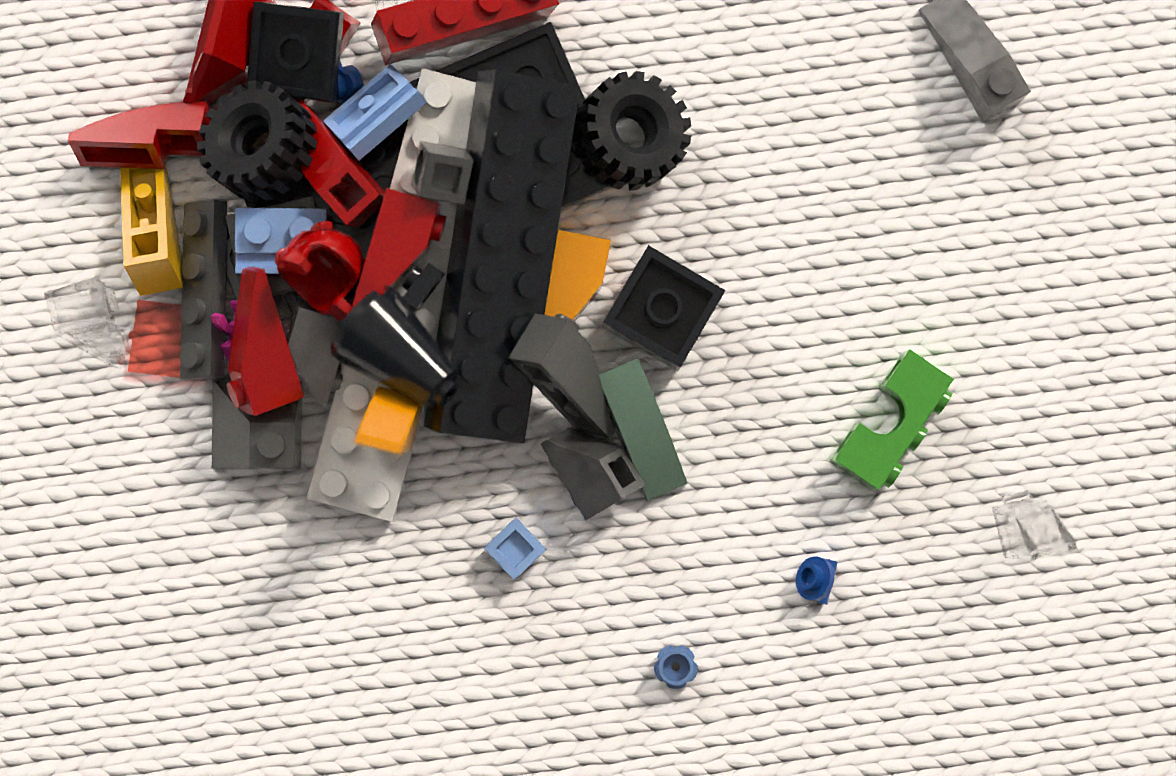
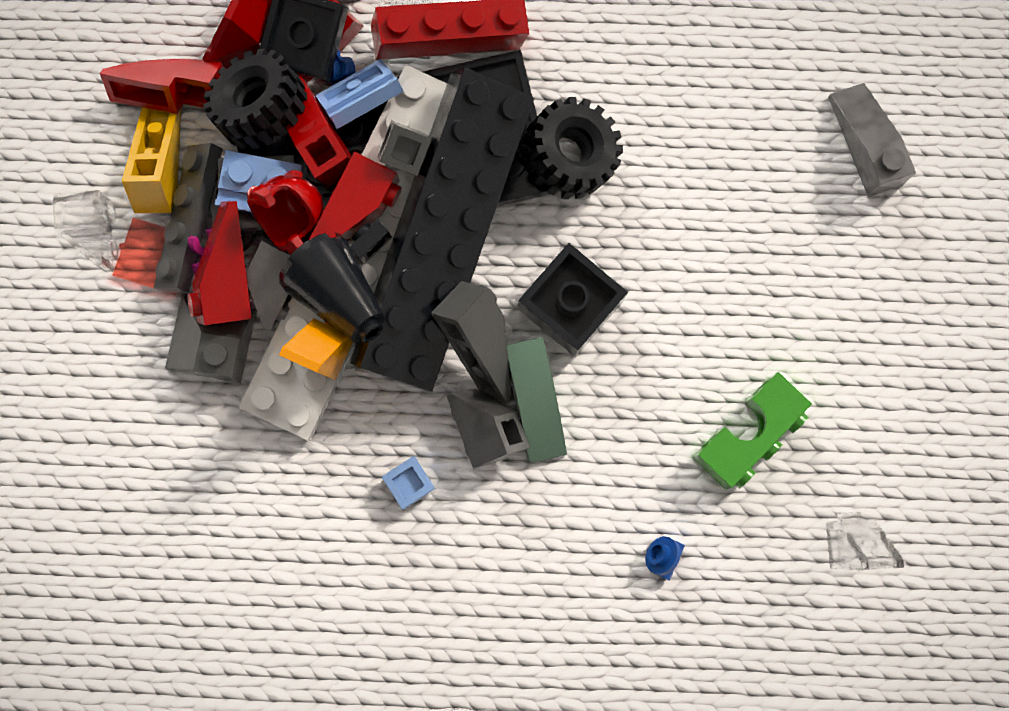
camera: 15 degrees right, 5 degrees down
(576, 273) = (504, 257): light orange slope -> none
(681, 655) = (518, 615): medium blue plate -> none

